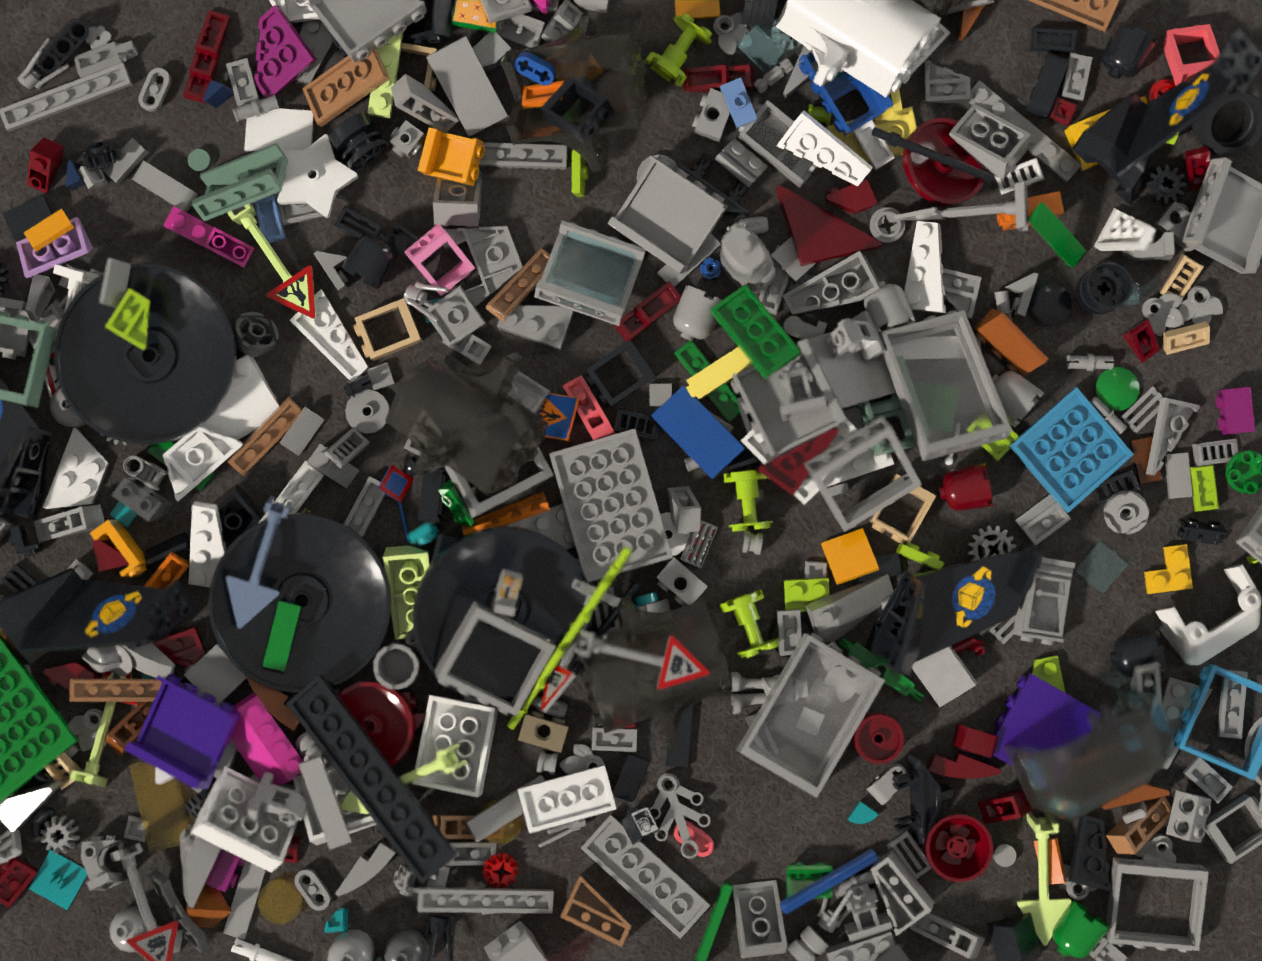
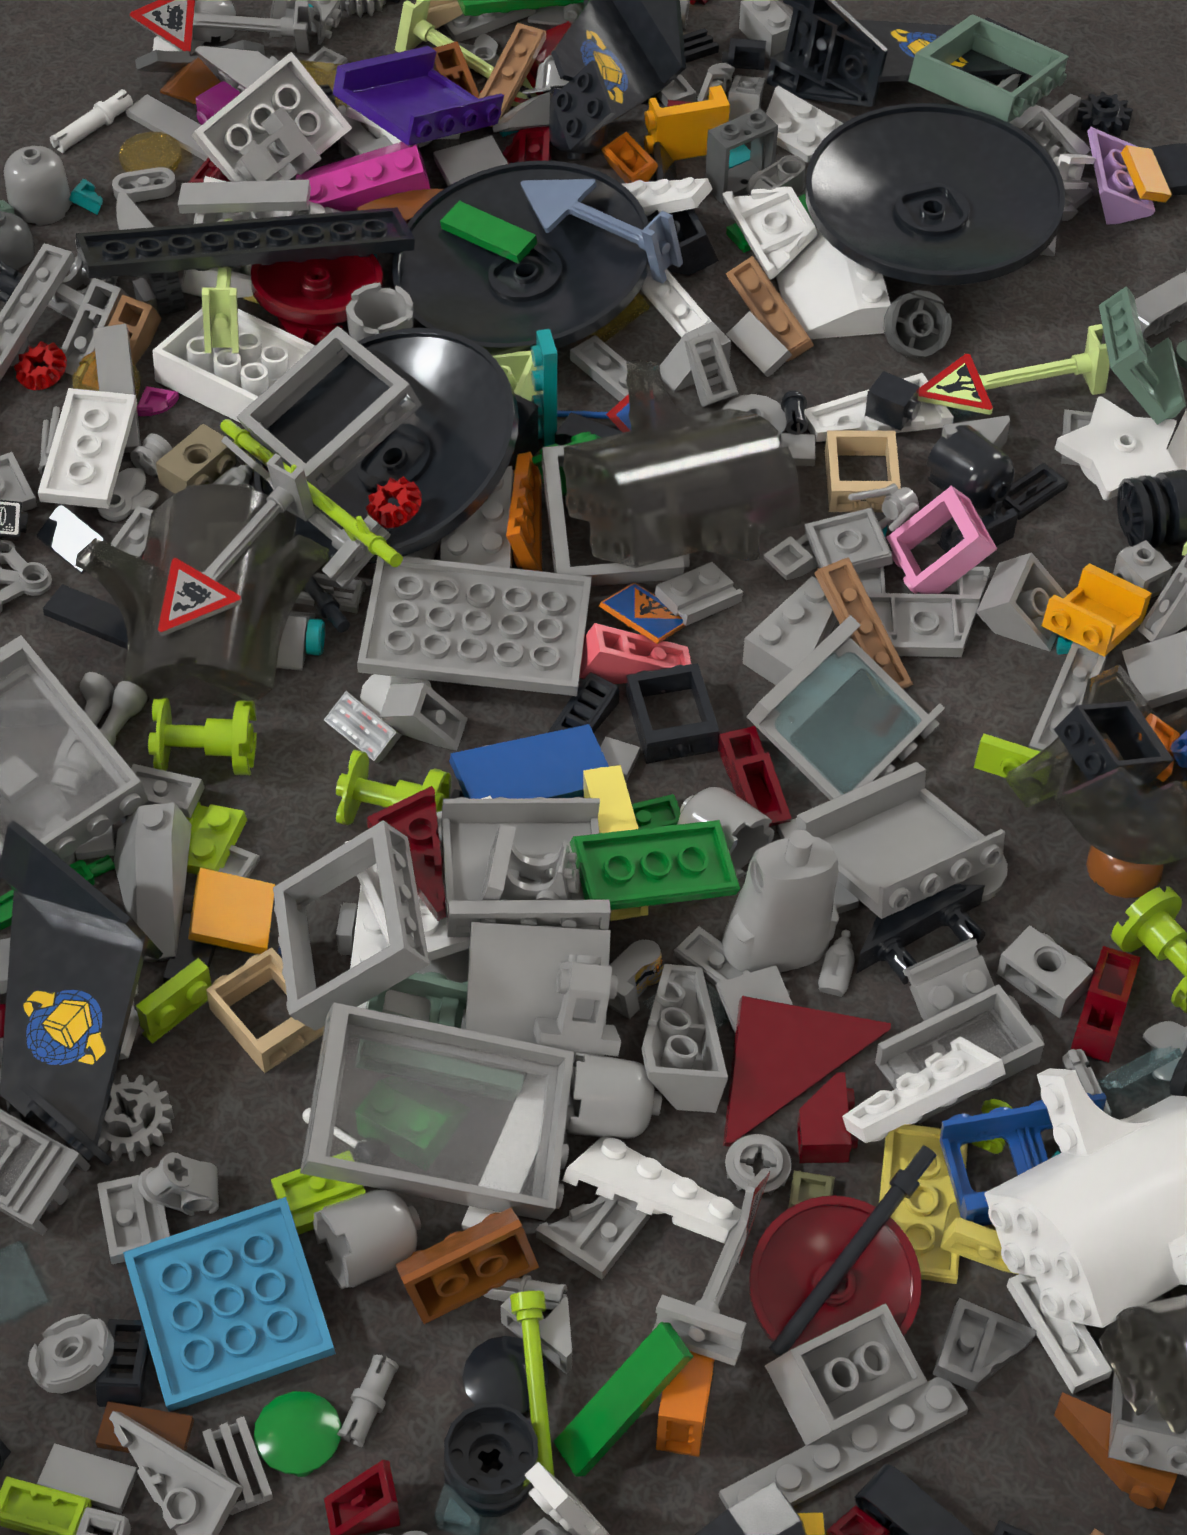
camera: 110 degrees right, 35 degrees down
(66, 546) = (716, 75): none -> light grey slope
(114, 282) = (1044, 176): light grey slope -> none
(131, 319) = (987, 180): lime wing -> none
(208, 237) = (1068, 331): dark pink slope -> none
(270, 219) = (1075, 396): medium blue plate -> none
(331, 326) = (892, 401): none -> black brick
(498, 785) = (156, 400): none -> dark pink tile
(506, 592) = (410, 436): light grey leg -> none
(552, 575) = (390, 515): none -> red gear
(694, 586) = (315, 684): light grey brick -> none
(738, 103) = (1053, 994): medium blue plate -> none
(752, 542) = (322, 793): light grey wheel -> none
(873, 147) = (934, 1182): white plate -> none
(891, 193) = (809, 1186): none -> olive tile
(967, 488) = (248, 1112): dark red cylinder -> none
(1021, 502) = (181, 1184): none -> light grey piece
(1025, 300) = (528, 1311): none -> lime piece
(1039, 176) = (760, 1442): white slope -> none
(1113, 421) = (257, 1392): light grey axle -> none

